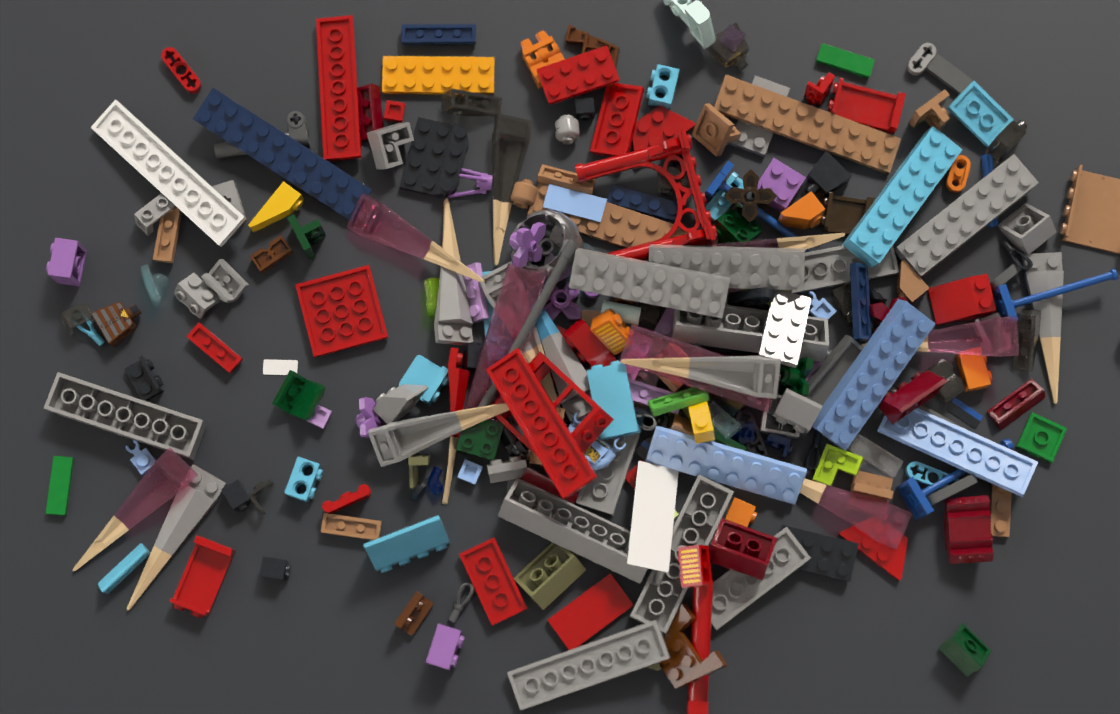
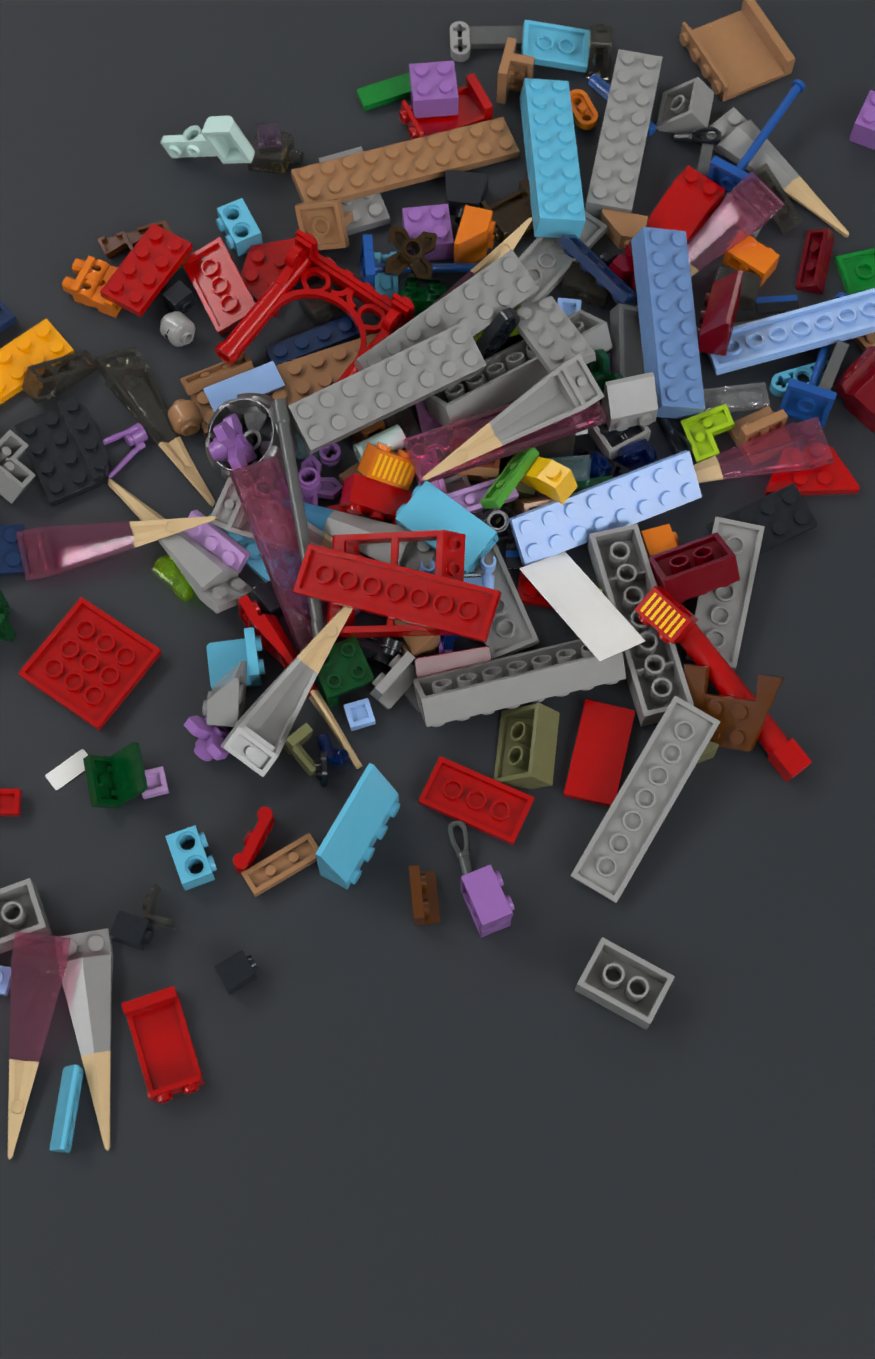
camera: 40 degrees left, 10 degrees down
(817, 93) = (389, 124): red bracket -> none
(868, 85) = (433, 89): none -> medium lavender brick

